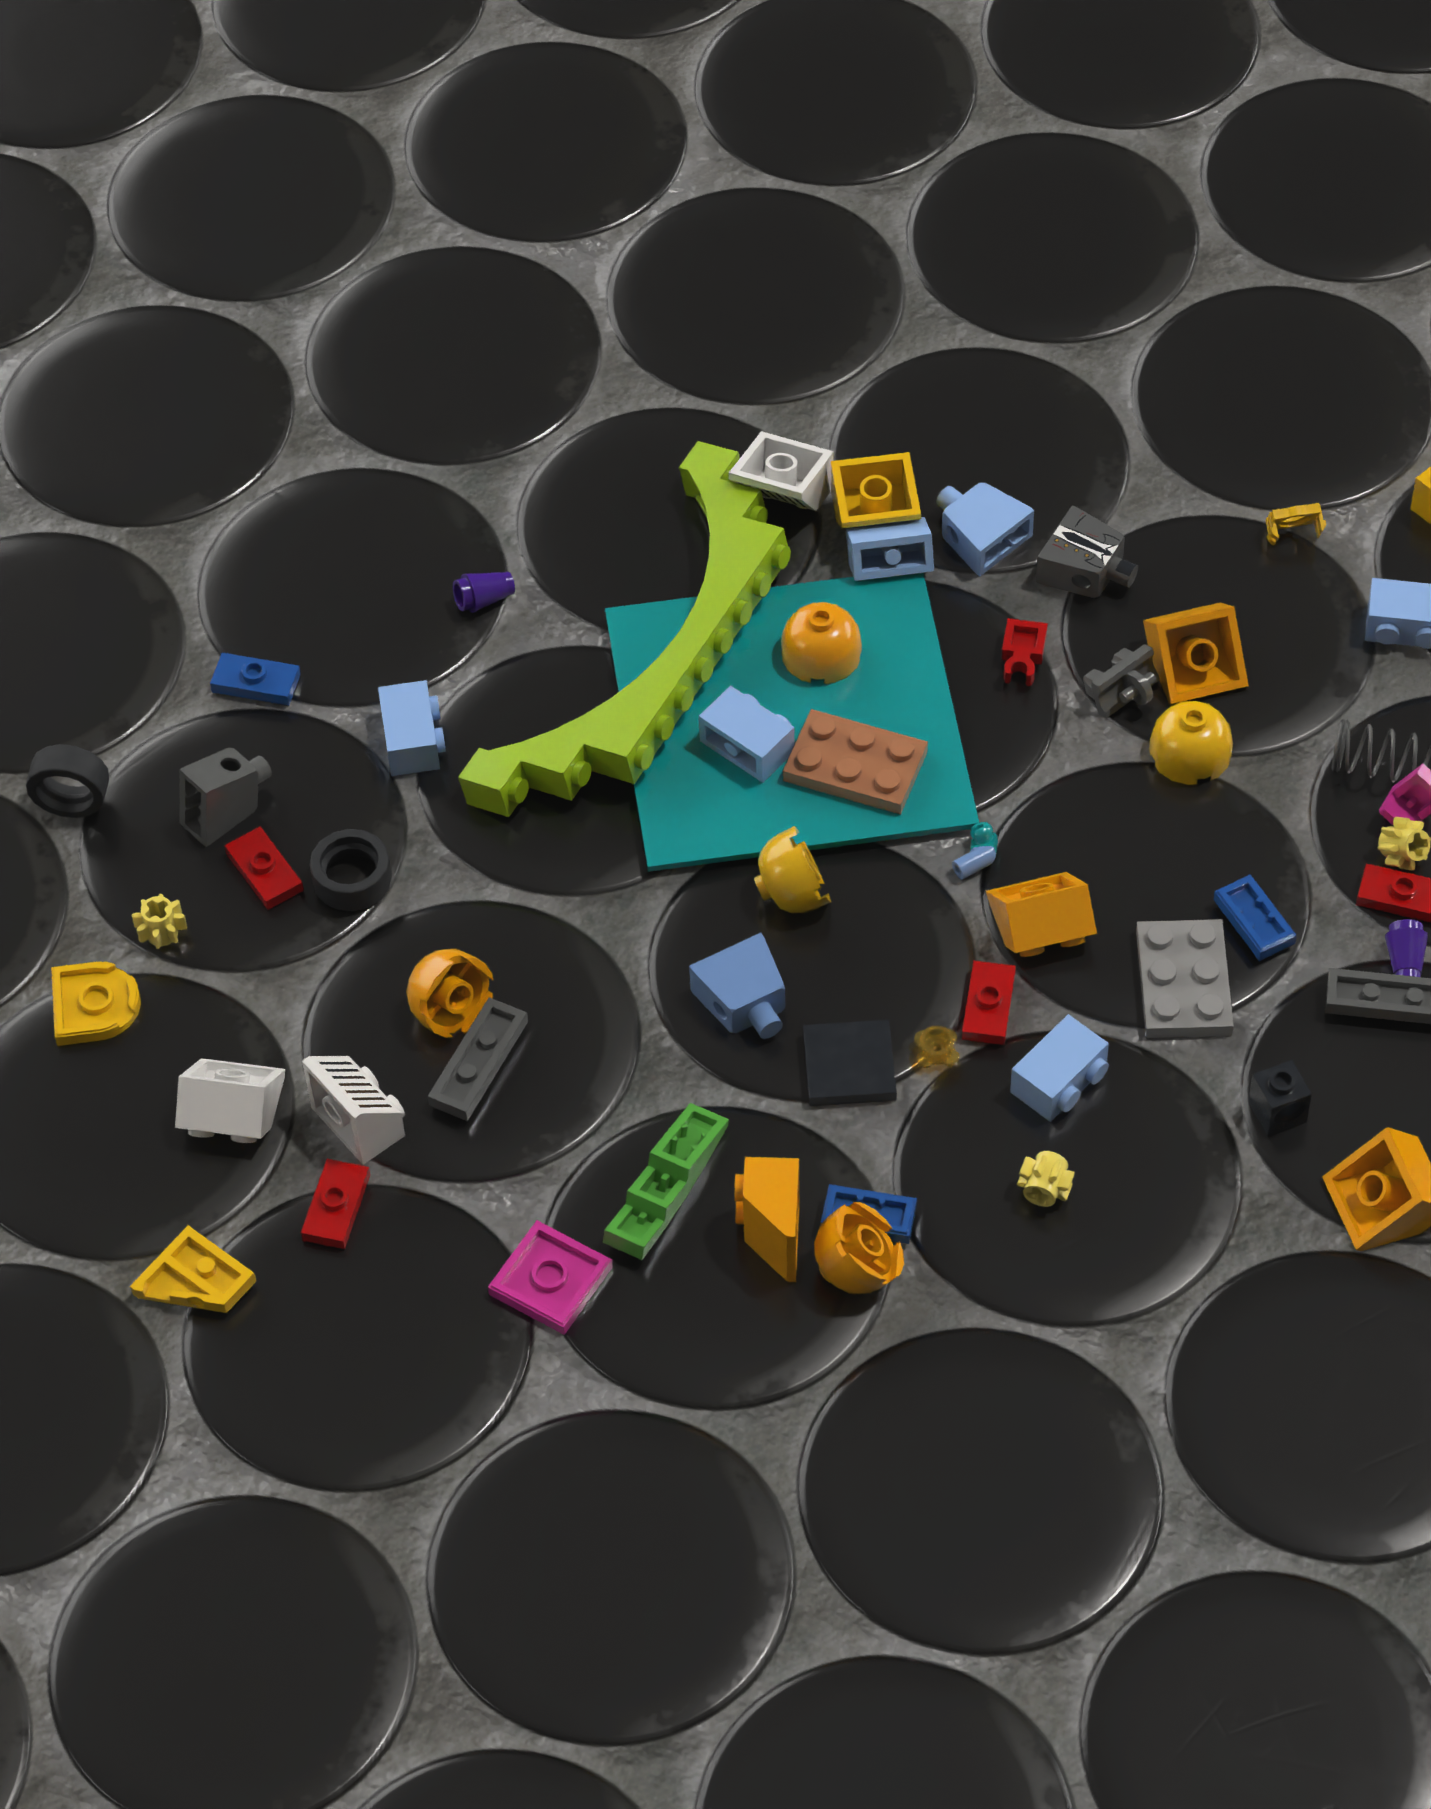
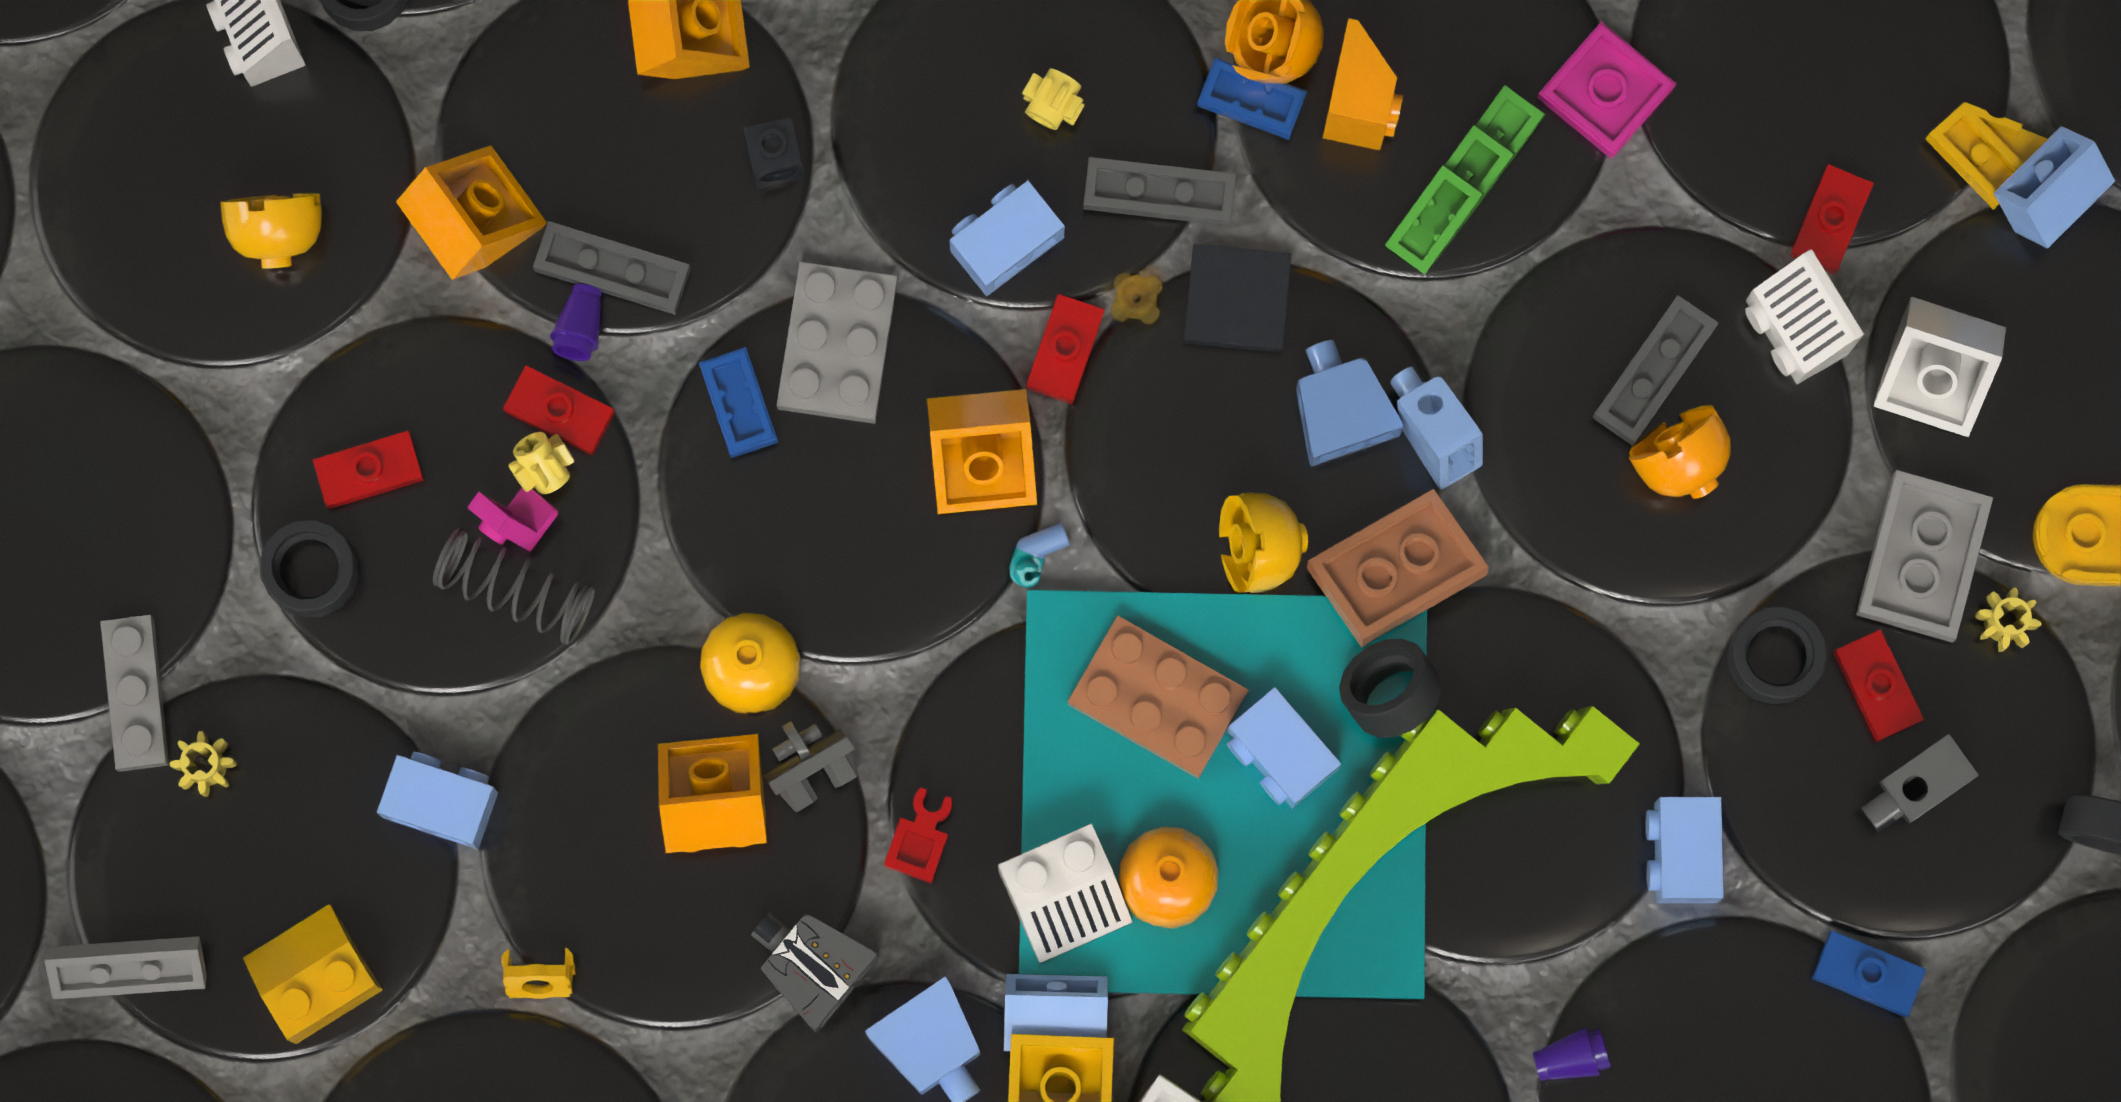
camera: 175 degrees left, 25 degrees up
(138, 1241) = (2054, 187): none -> light blue brick
(232, 959) = (1924, 556): none -> light grey plate
(659, 974) = (1438, 427): none -> light blue torso
(675, 875) = (1397, 567): none -> nougat plate
(694, 768) = (1406, 709): none -> black tyre
(906, 623) = (1065, 893): none -> white slope
(935, 1127) = (1159, 191): none -> dark grey plate

